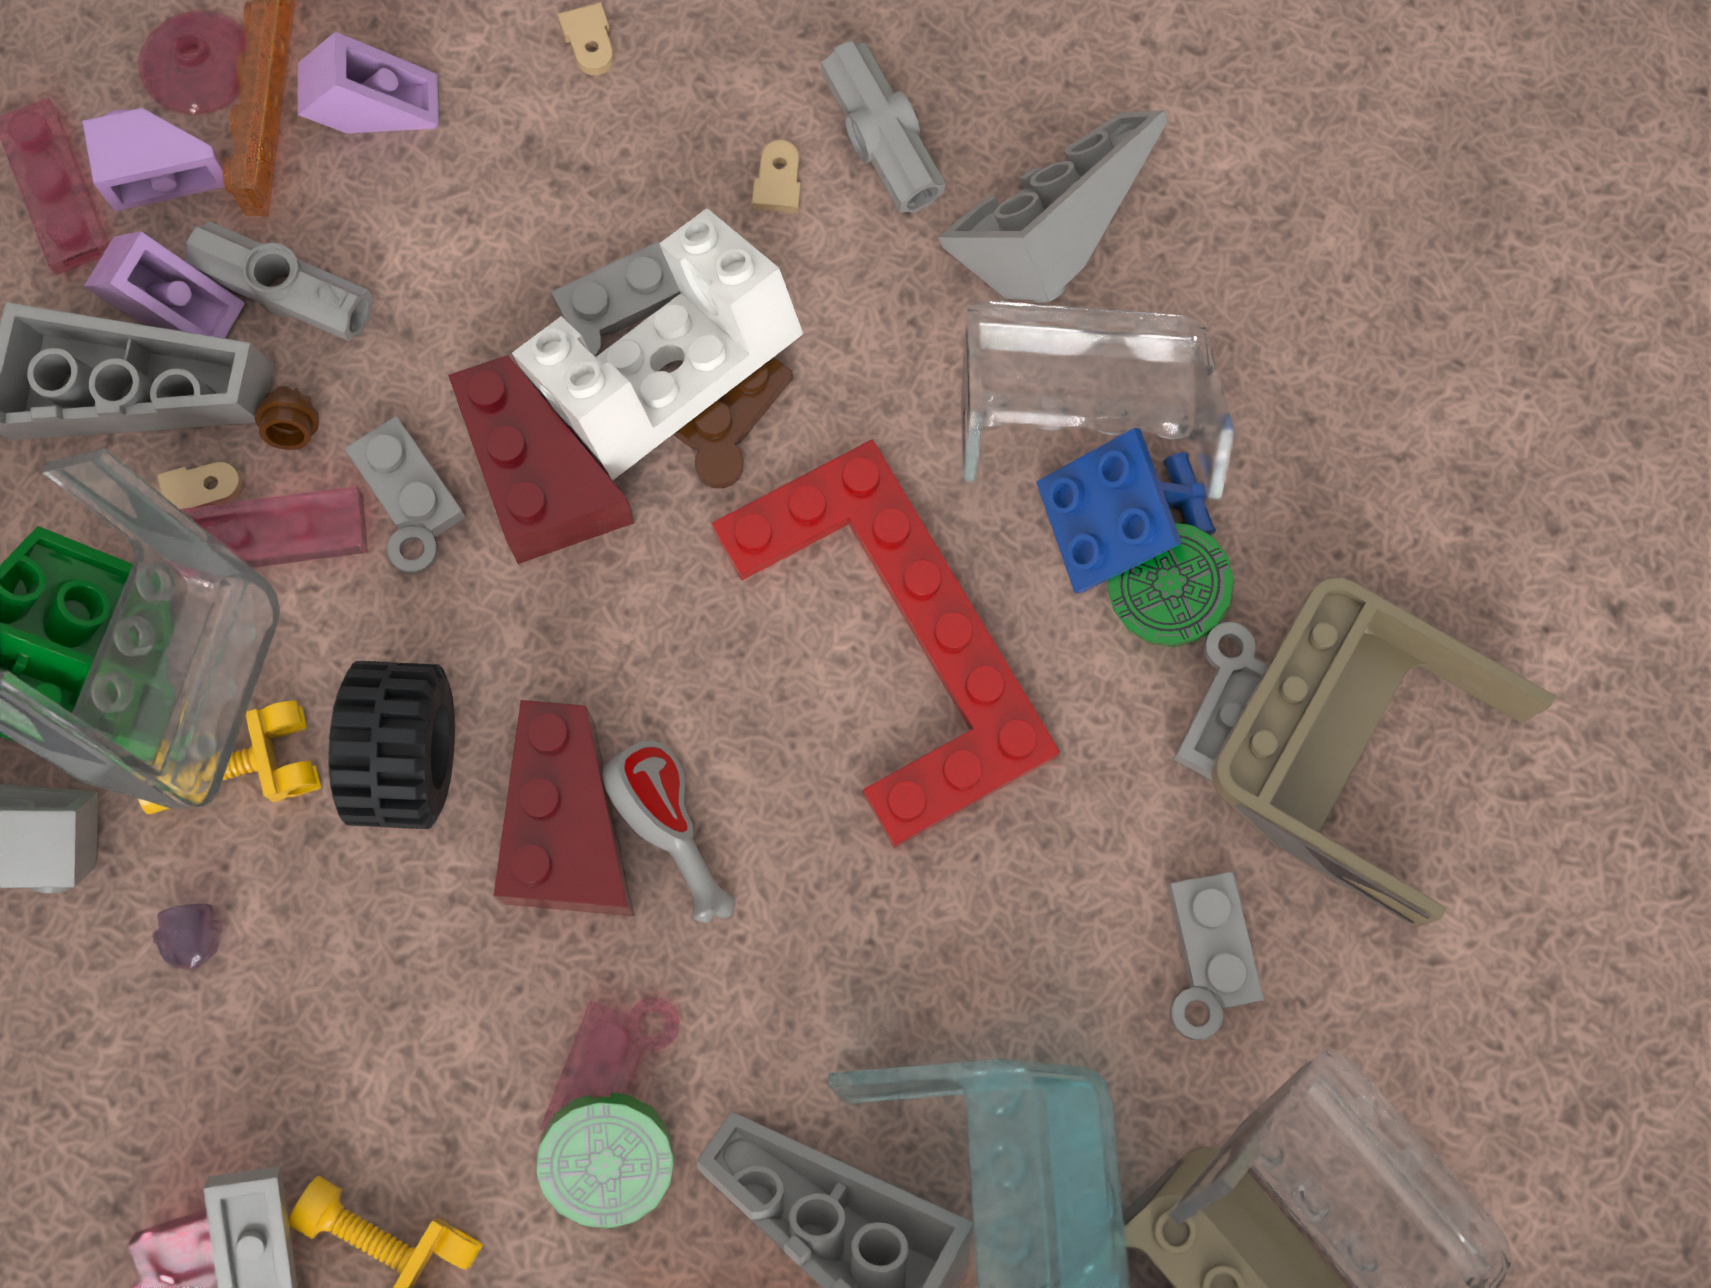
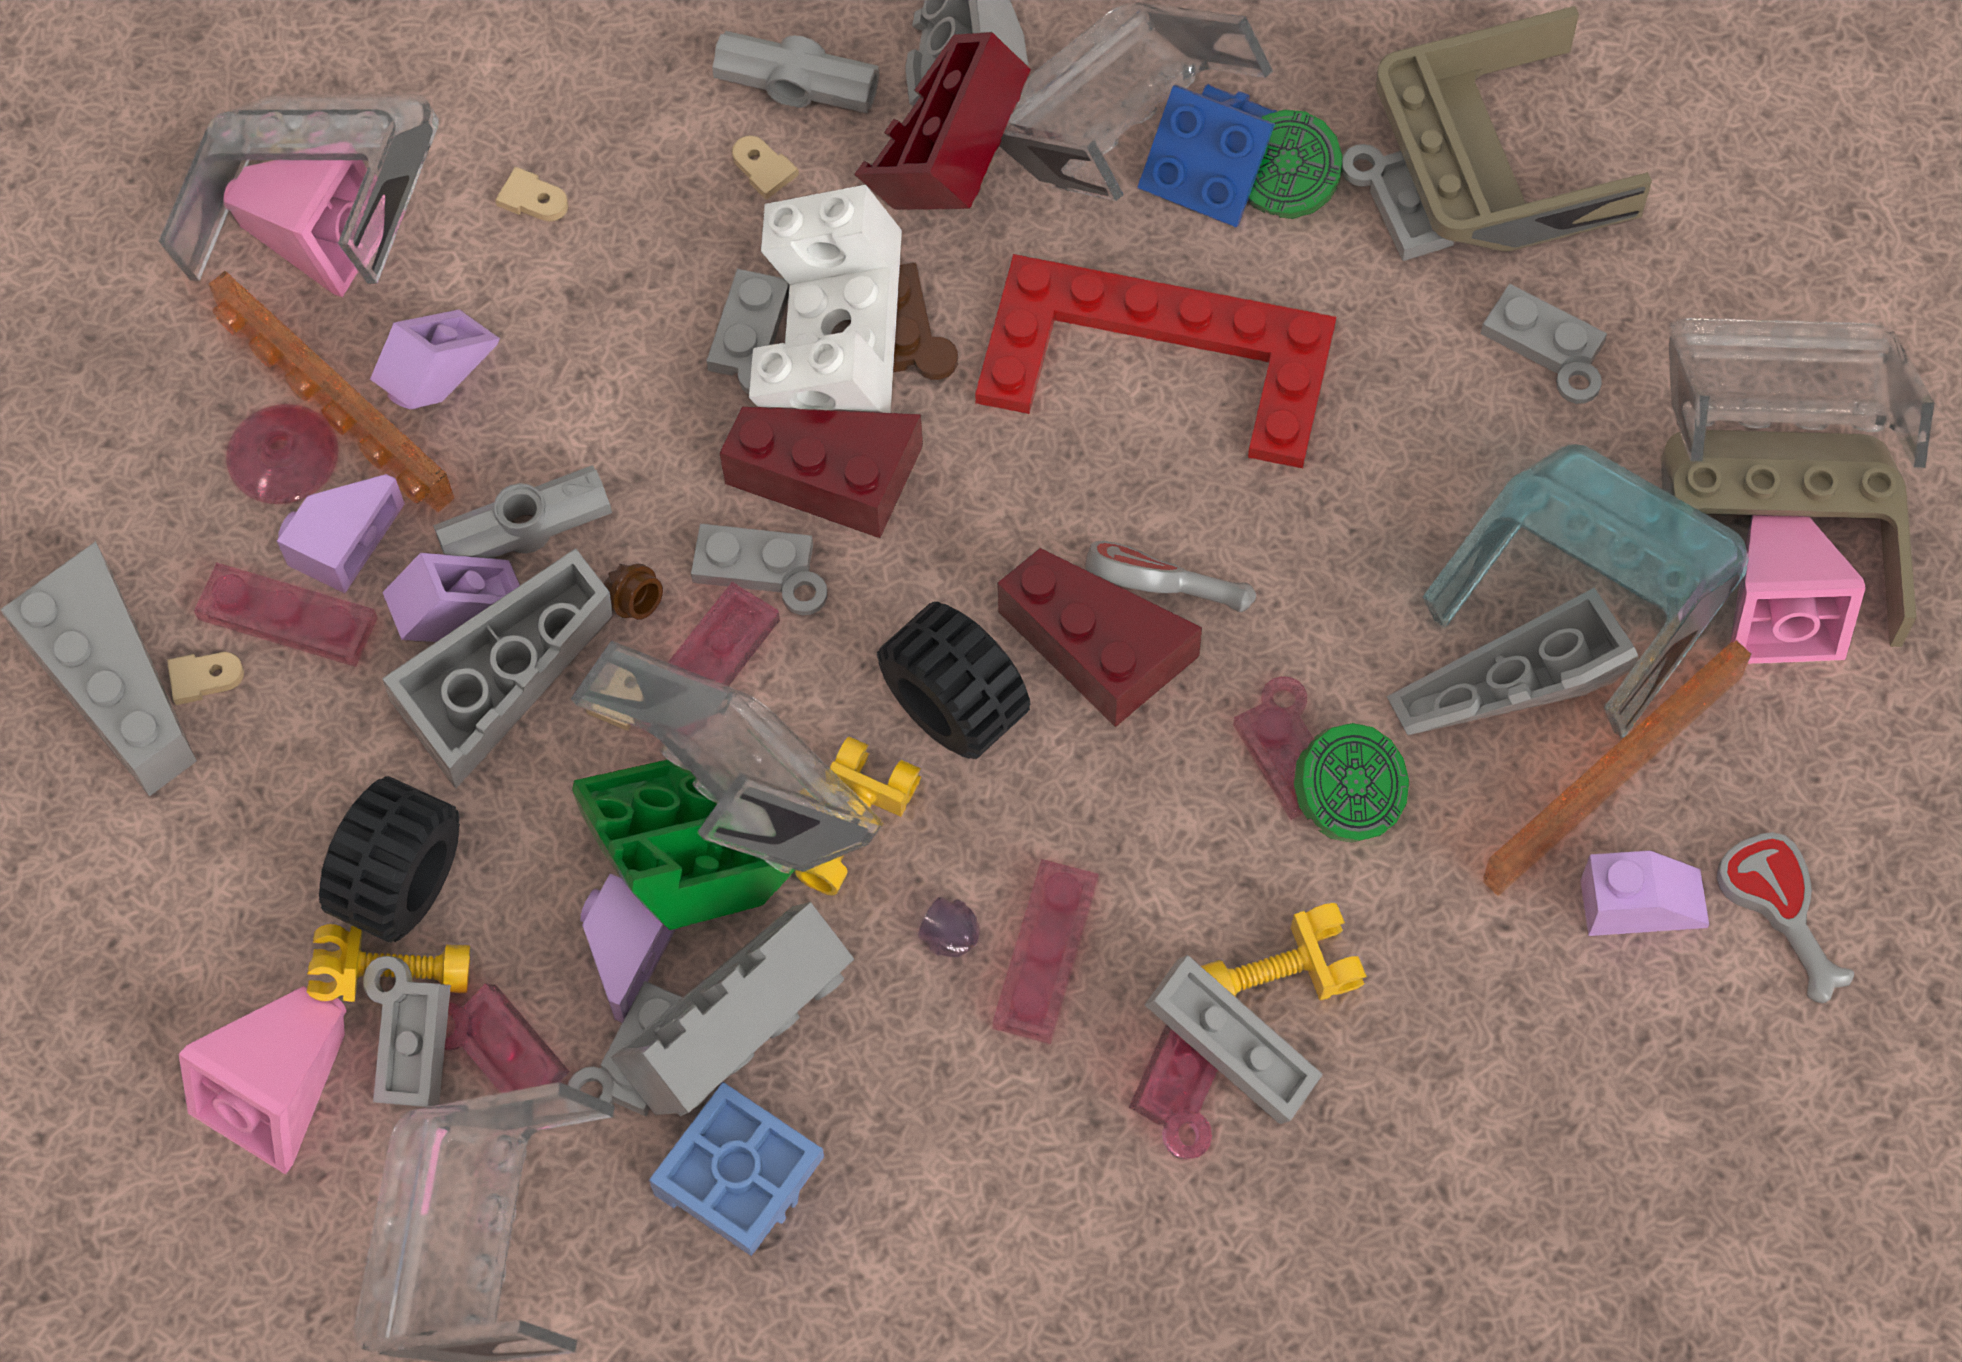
camera: 40 degrees left, 10 degrees down
(237, 1031) = (1045, 951): none -> clear pink plate
(927, 287) = (952, 129): none -> dark red wedge

